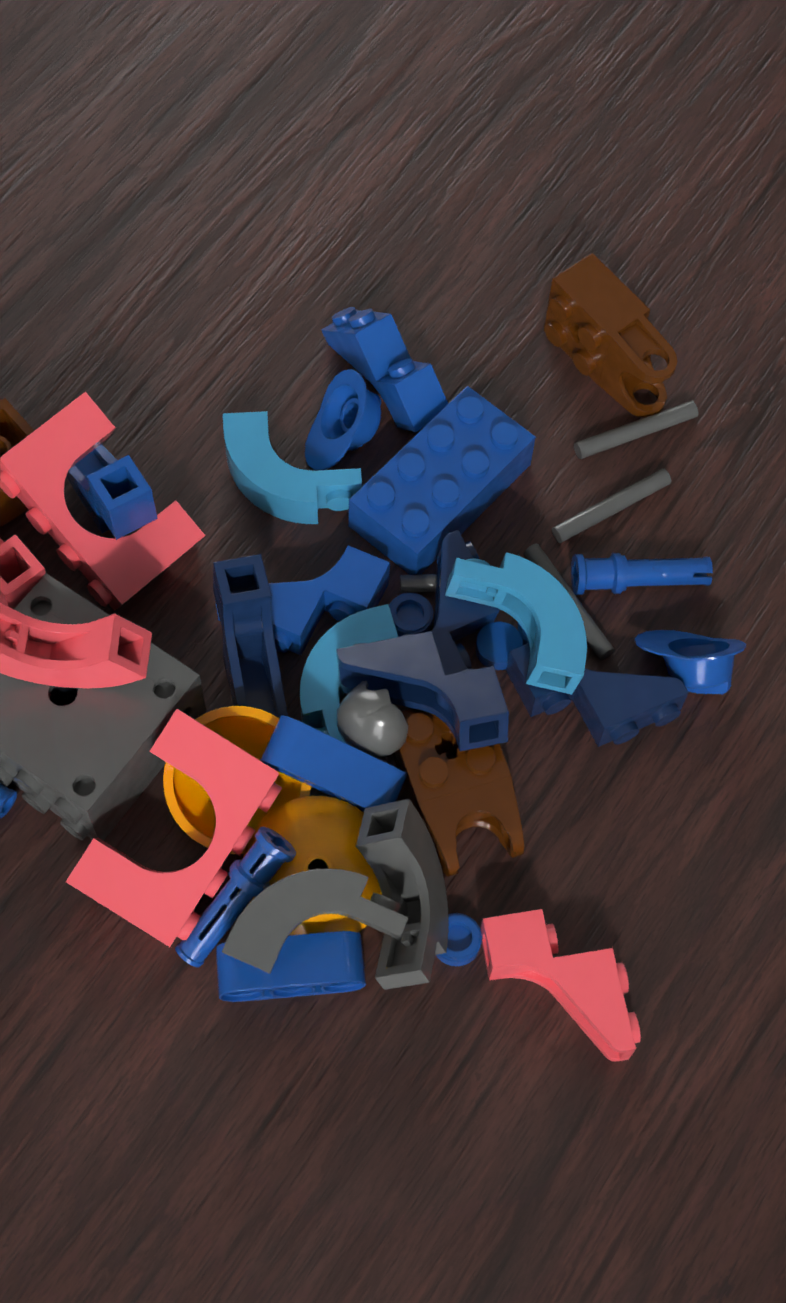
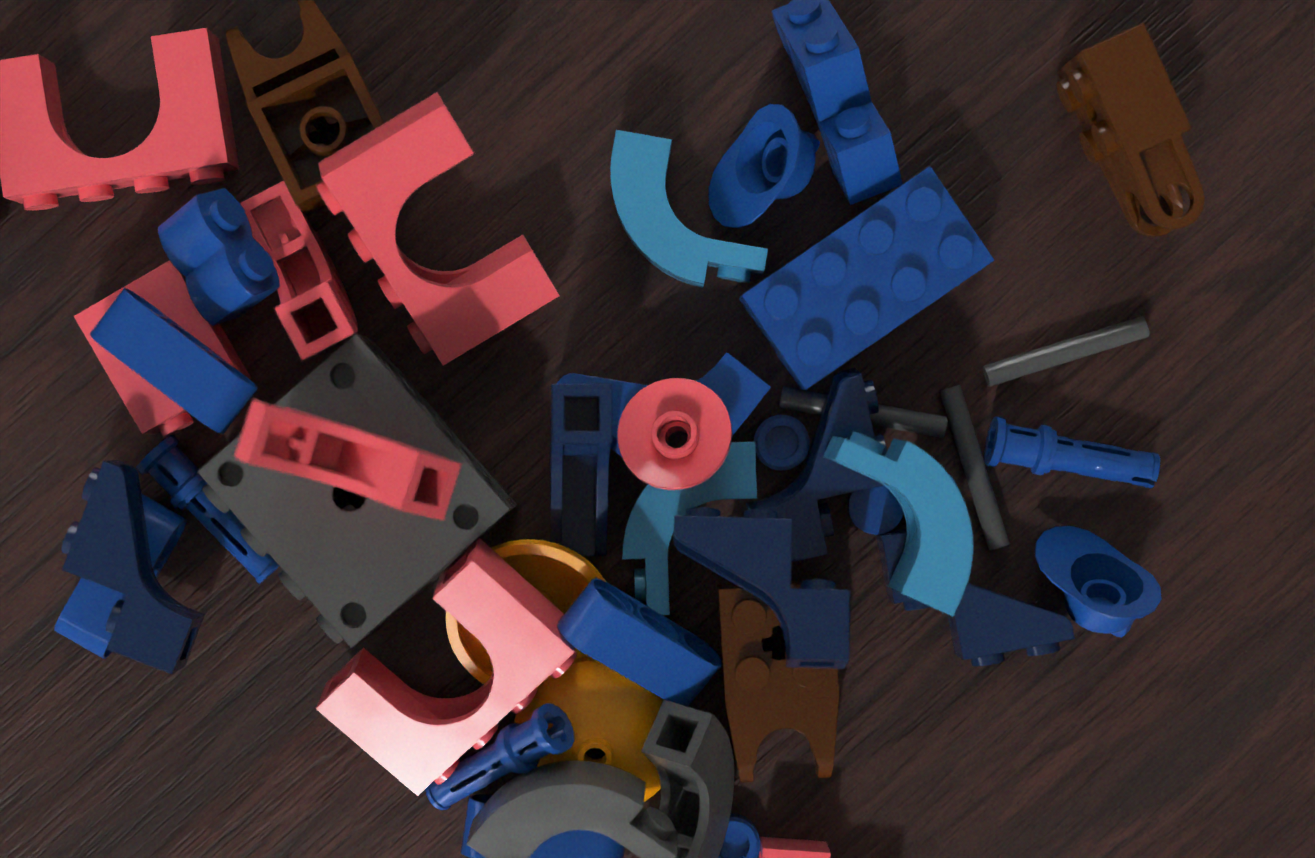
camera: 20 degrees right, 25 degrees up
(113, 492) = (459, 228): blue arch -> none
(321, 603) = (669, 408): none -> coral dish
(371, 722) = (692, 605): dark grey hair -> none
(636, 429) = (1129, 252): dark grey bar -> none

